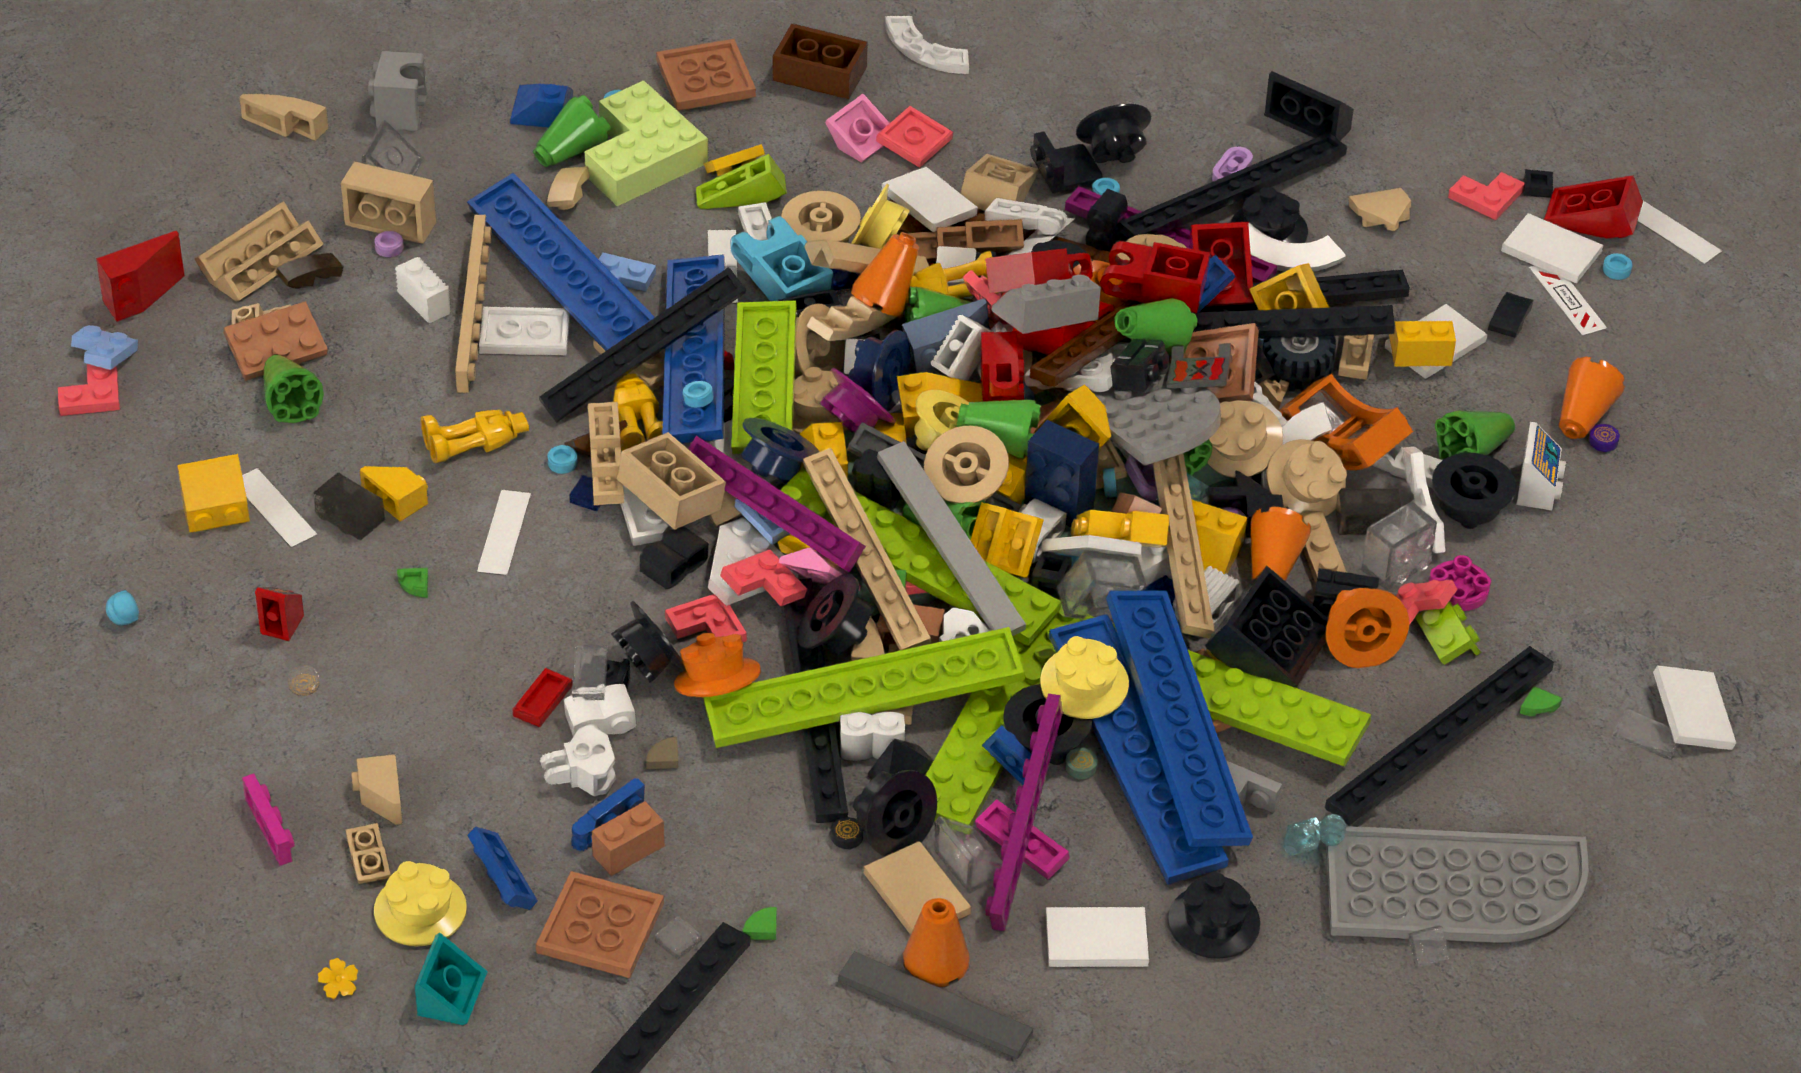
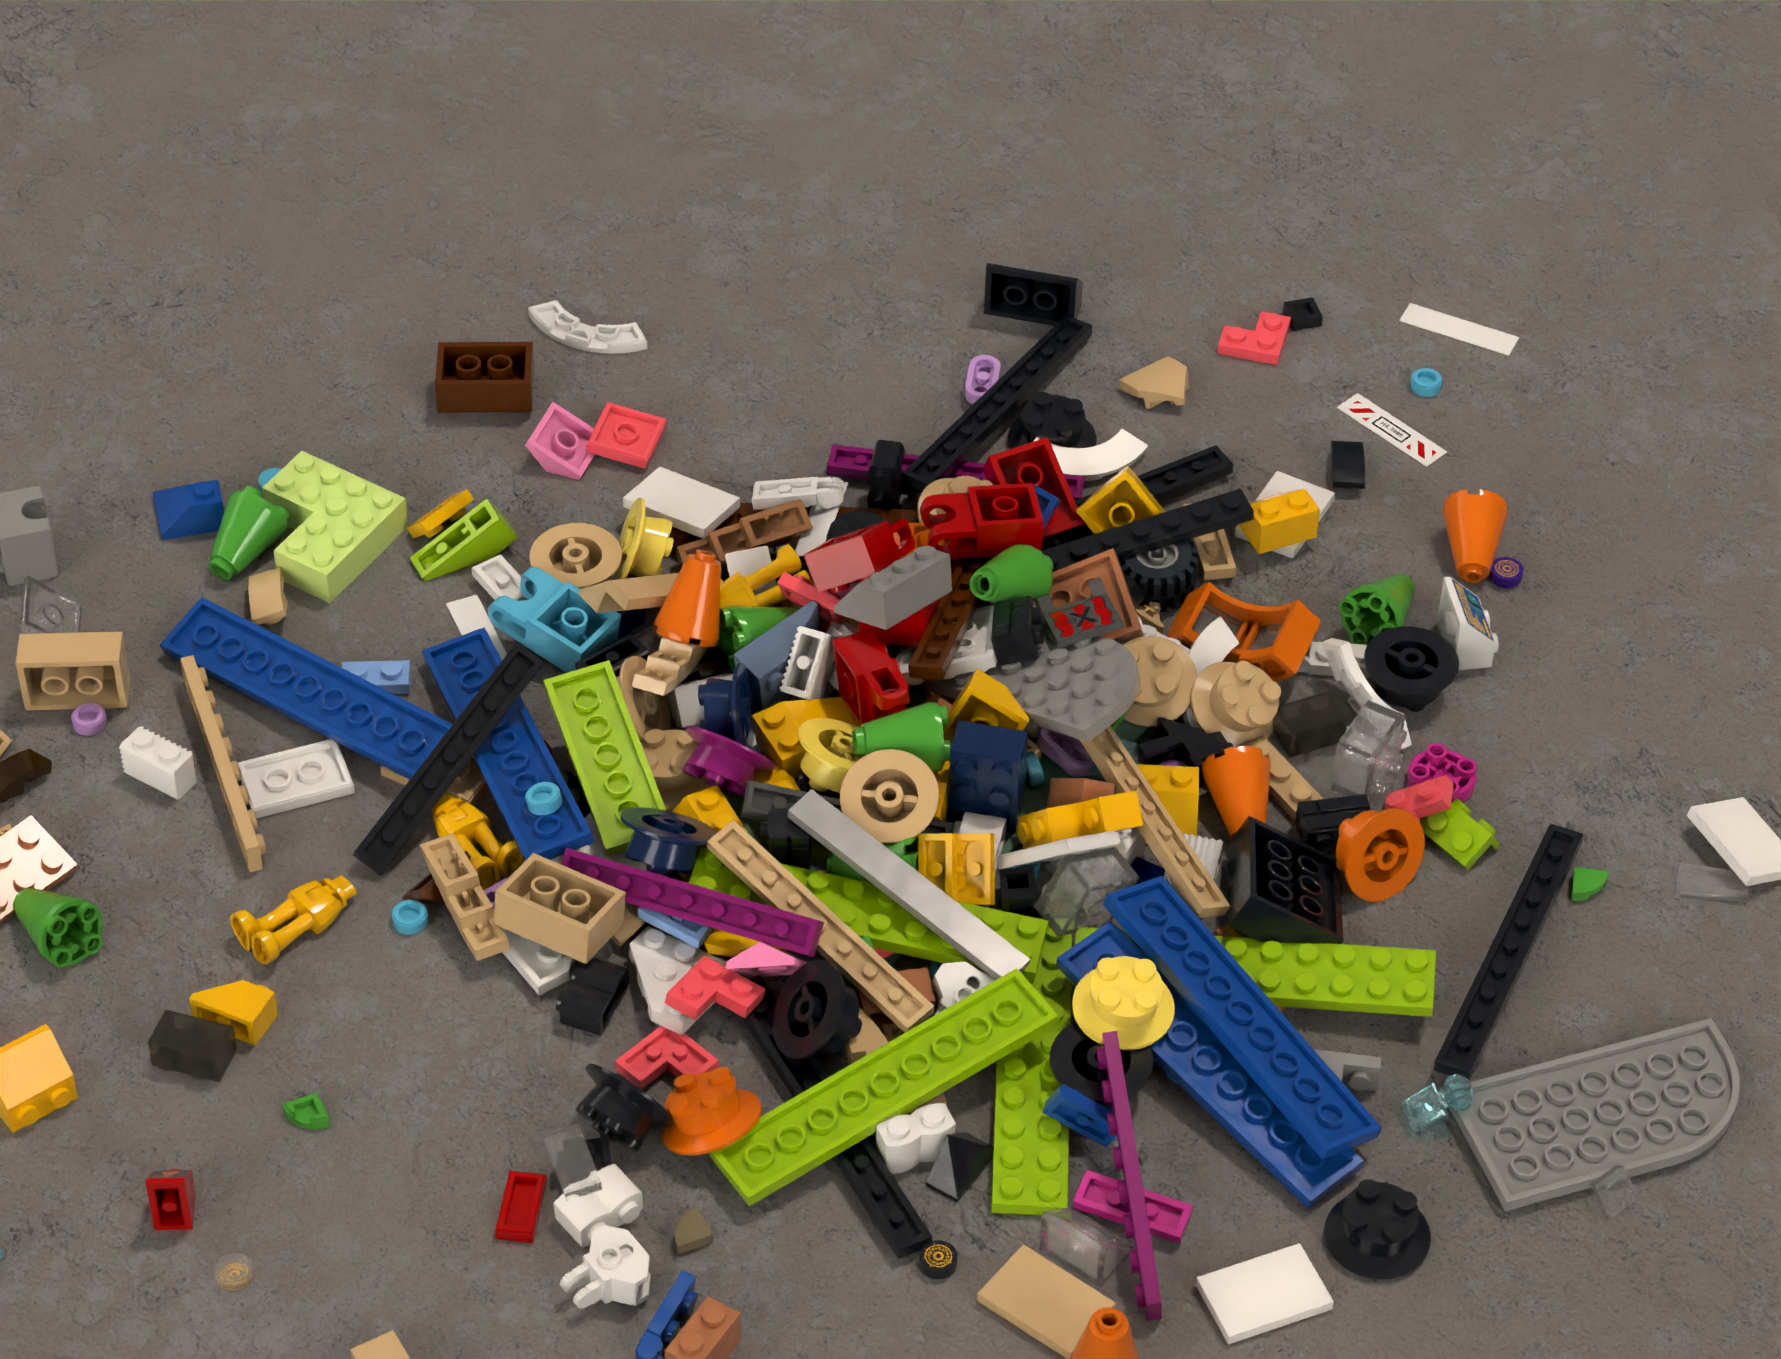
camera: 20 degrees left, 0 degrees up
(276, 508) = (108, 1075): white sticker -> none
(504, 532) = (382, 1023): white sticker -> none
(583, 494) = (455, 950): clear blue tile -> none
(705, 74) = (361, 425): nougat plate -> none
(896, 810) = (988, 1217): black piece -> none
(997, 178) = (742, 461): tan slope -> none
(1065, 166) = (805, 425): black bracket -> none
(1081, 763) = (1151, 1099): sand green tile -> none
(1102, 184) = (860, 437): medium azure tile -> none
(1115, 132) = (848, 374): black piece -> none
(1552, 248) = (1351, 380): white tile -> none
(1597, 208) = (1376, 324): red slope -> none

